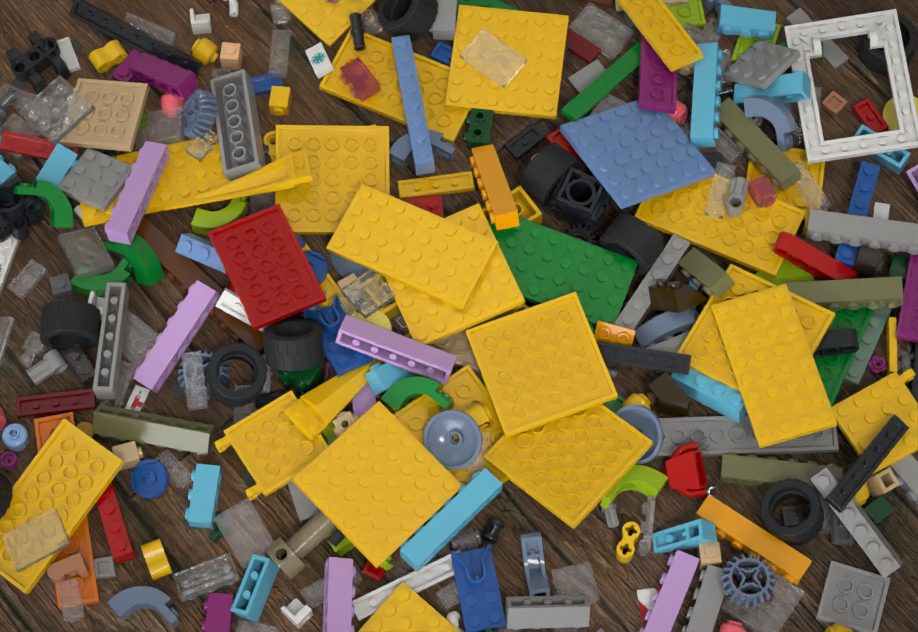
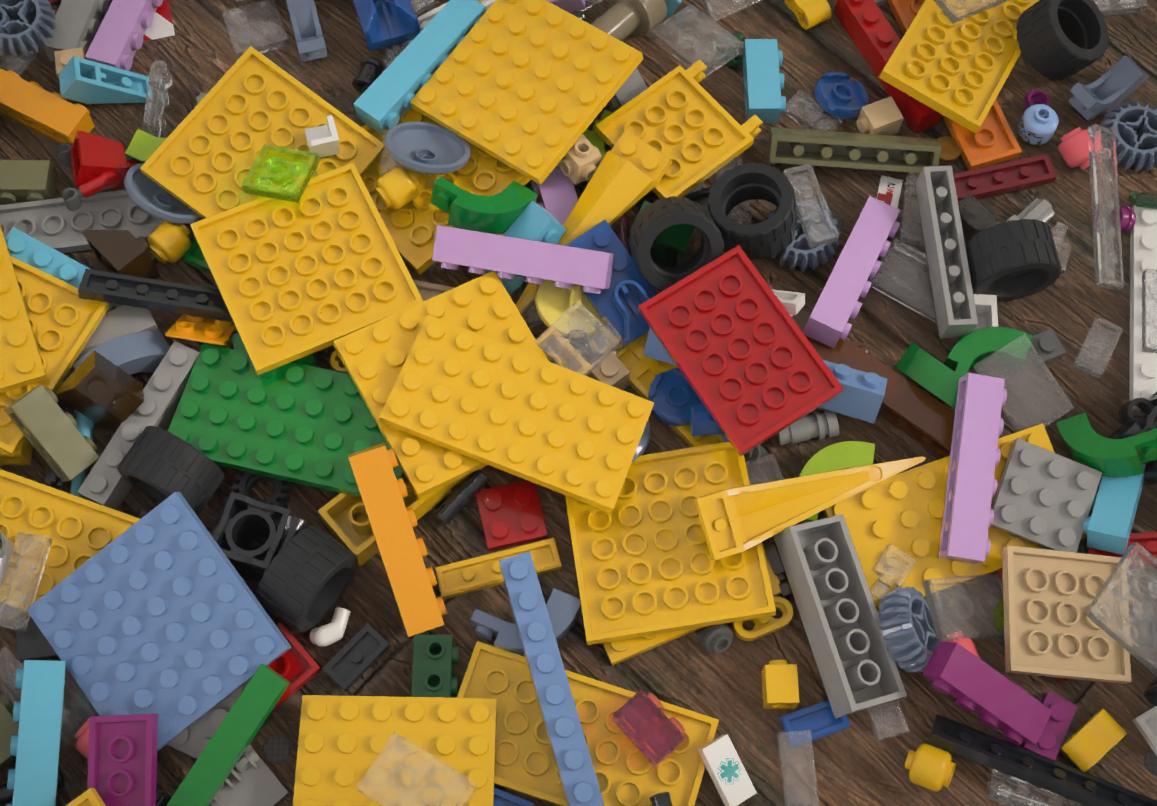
camera: 170 degrees right, 0 degrees up
(231, 55) = (882, 761): light nougat brick -> none
(525, 451) = (323, 139): none -> white panel
(555, 424) = (280, 173): none -> clear neon green plate
(627, 542) = (184, 78): yellow axle -> none

